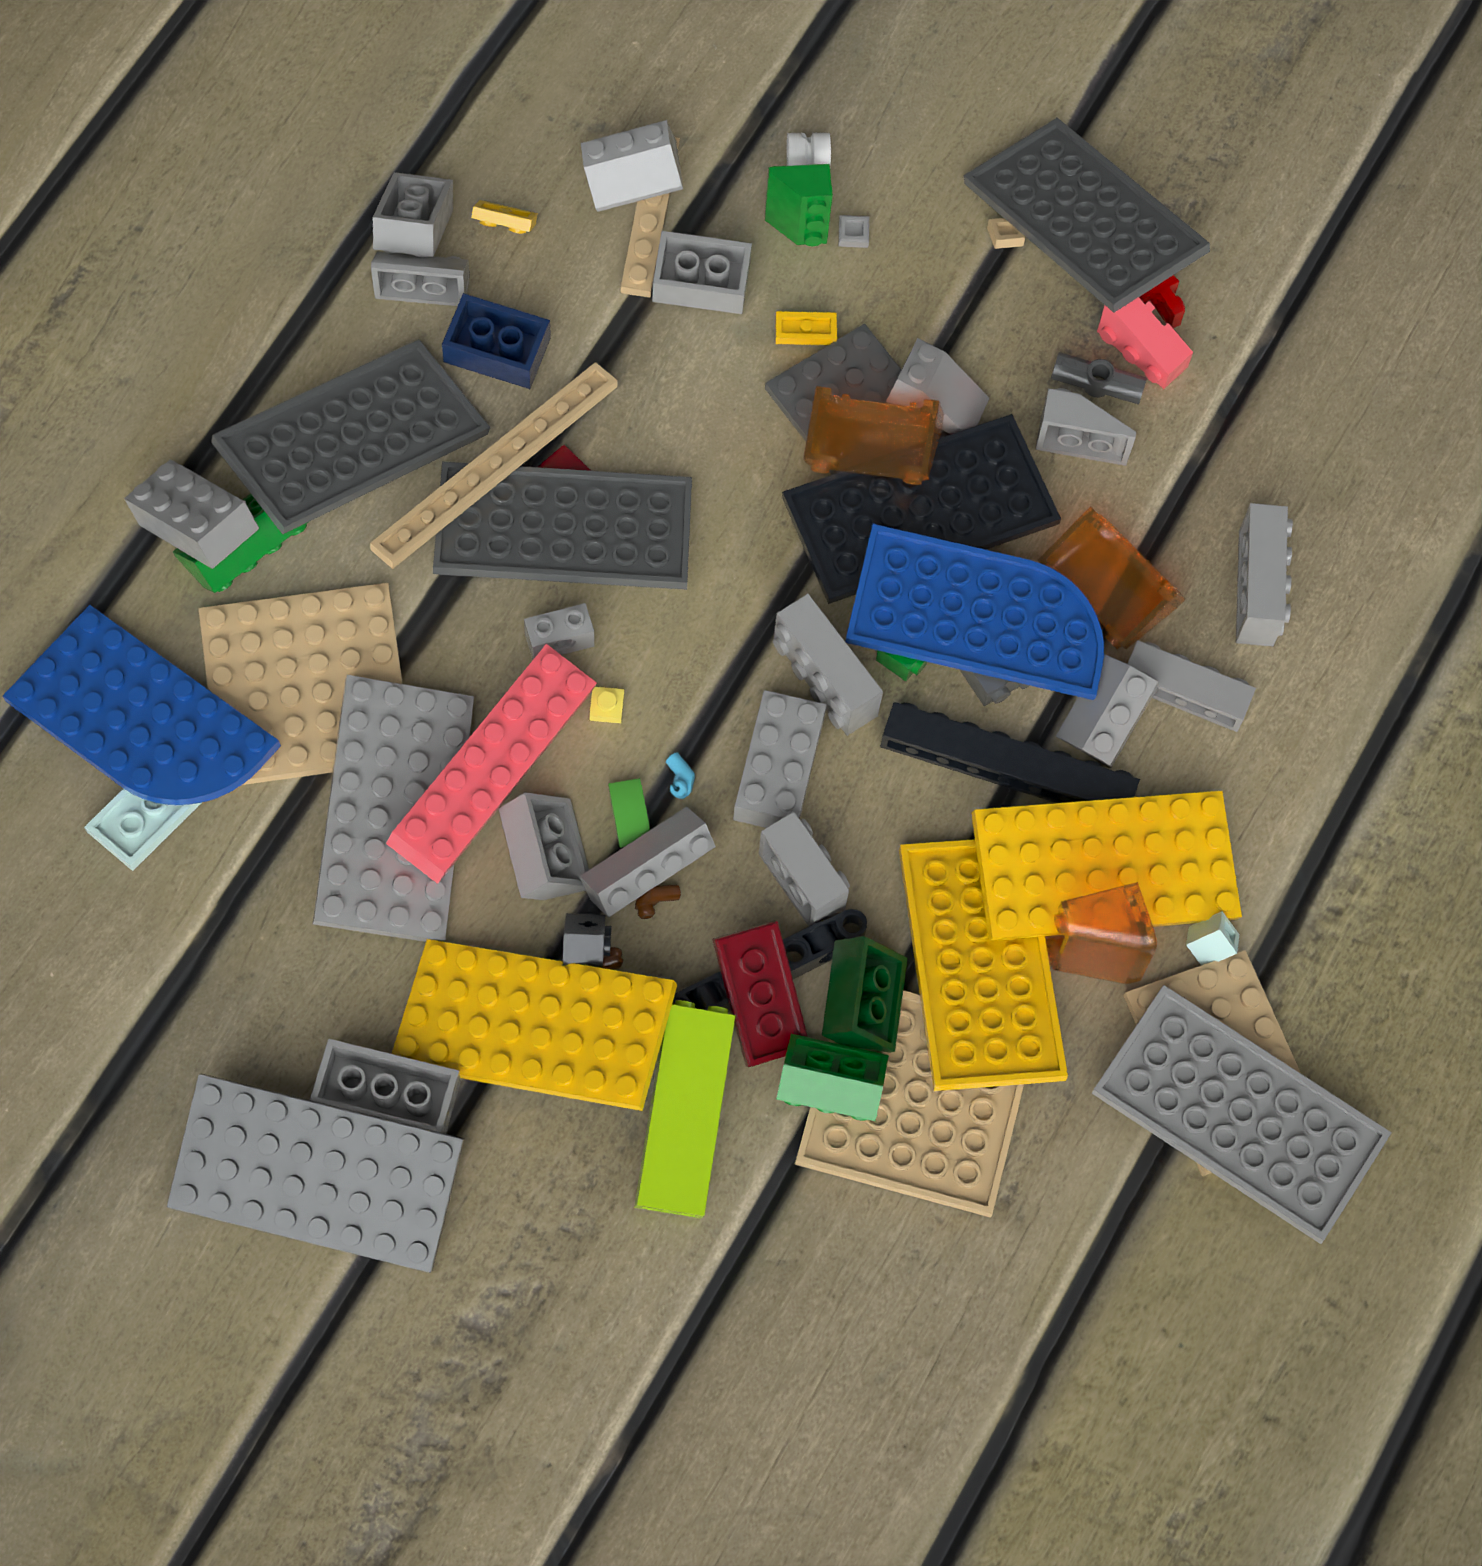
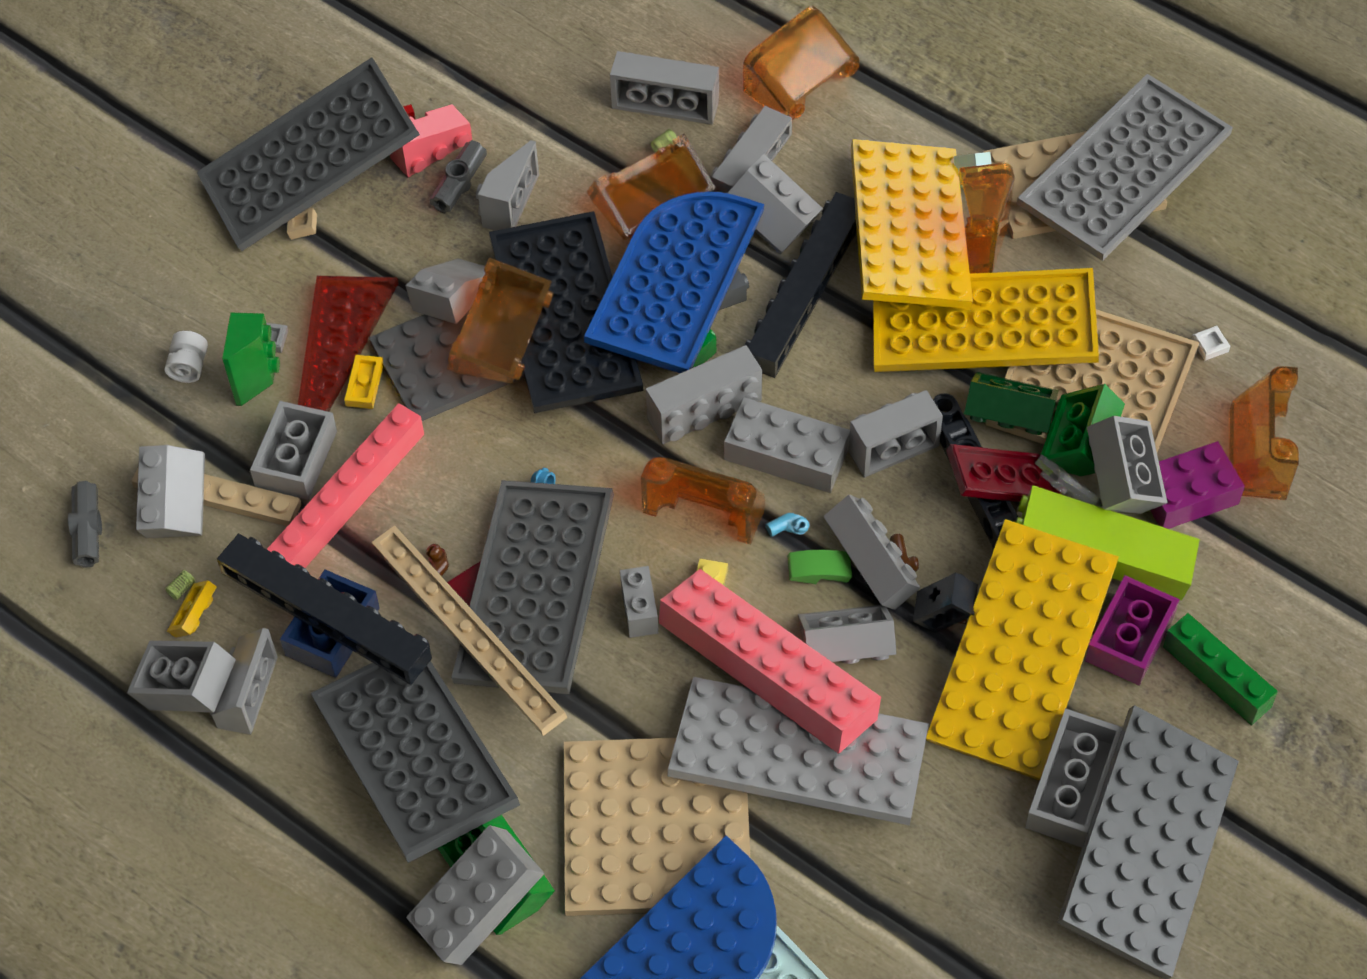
camera: 75 degrees left, 10 degrees down
(494, 323) = (325, 608): none -> black brick
(527, 194) = (174, 592): none -> yellowish green piece
(541, 1246) = (1220, 669): none -> green brick
(577, 1146) = (1131, 630): none -> magenta brick
(587, 436) = (437, 558): none -> reddish brown arm
(593, 102) = (85, 524): none -> dark grey piece
(653, 328) = (349, 487): none -> coral brick
(698, 716) = (668, 480): none -> clear orange windscreen
(702, 521) = (543, 476): none -> dark azure plate
(756, 1063) = (1066, 482): none -> clear plate
(775, 1118) = (1126, 465): none -> light grey brick
(783, 1208) = (1197, 485): none -> magenta brick
(881, 294) = (340, 325): none -> clear red wing
(903, 1276) = (1261, 459): none -> clear orange windscreen
(1001, 1233) = (1211, 343): none -> white tile
(1201, 597) = (658, 144): none -> yellowish green piece
(1333, 721) = (797, 62): none -> clear orange windscreen

